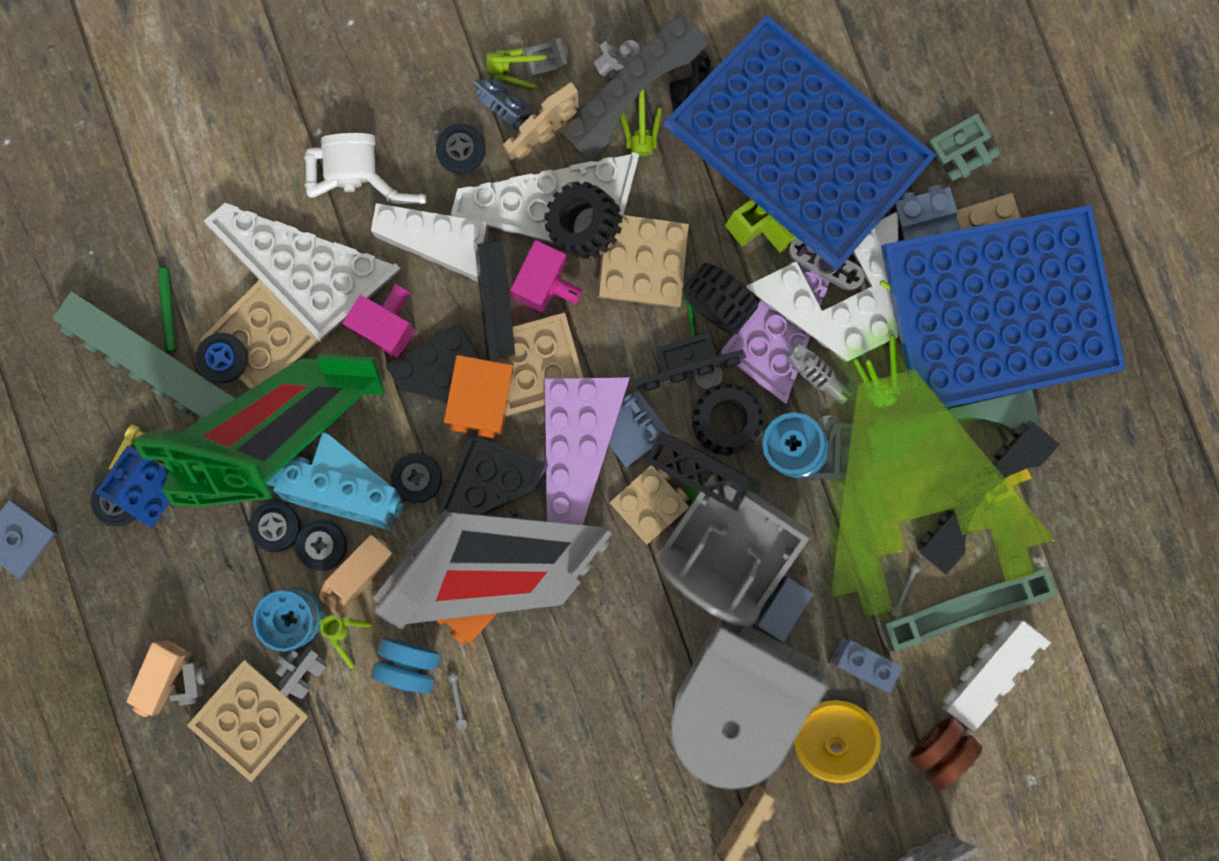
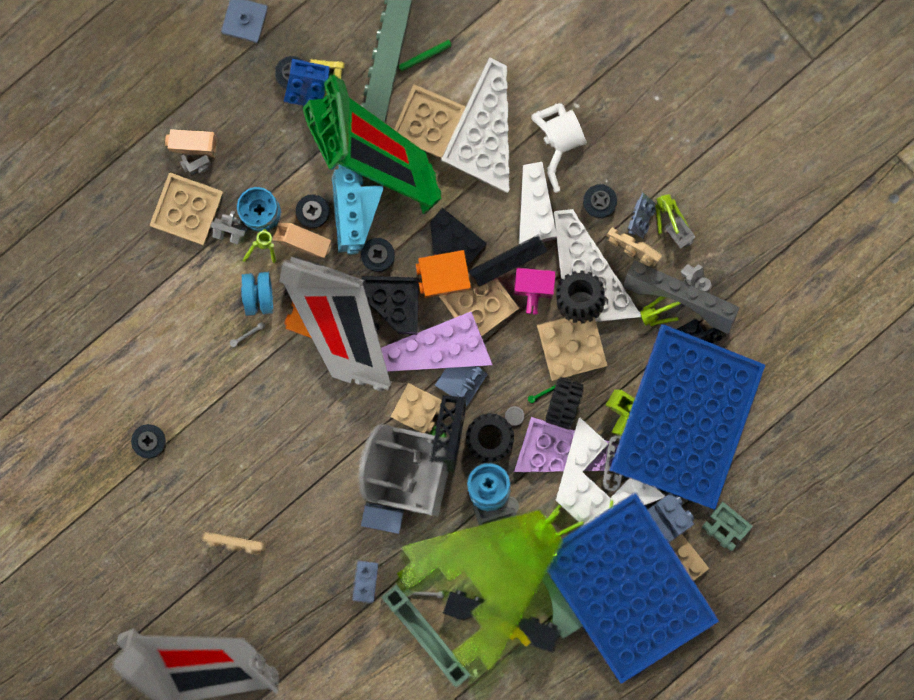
camera: 70 degrees right, 0 degrees up
(212, 353) = (407, 96): black wheel -> none
(264, 528) = (311, 171): black wheel -> none
(381, 323) = (466, 195): dark pink brick -> none
(688, 357) = (520, 397): black bracket -> none
(743, 705) = (311, 511): light grey piece -> none
(817, 372) = (541, 483): light grey hinge -> none
(841, 726) = (319, 576): yellow dish -> none
(945, 753) = (330, 650): copper wheel -> none
(993, 673) = (390, 667): white wedge -> none

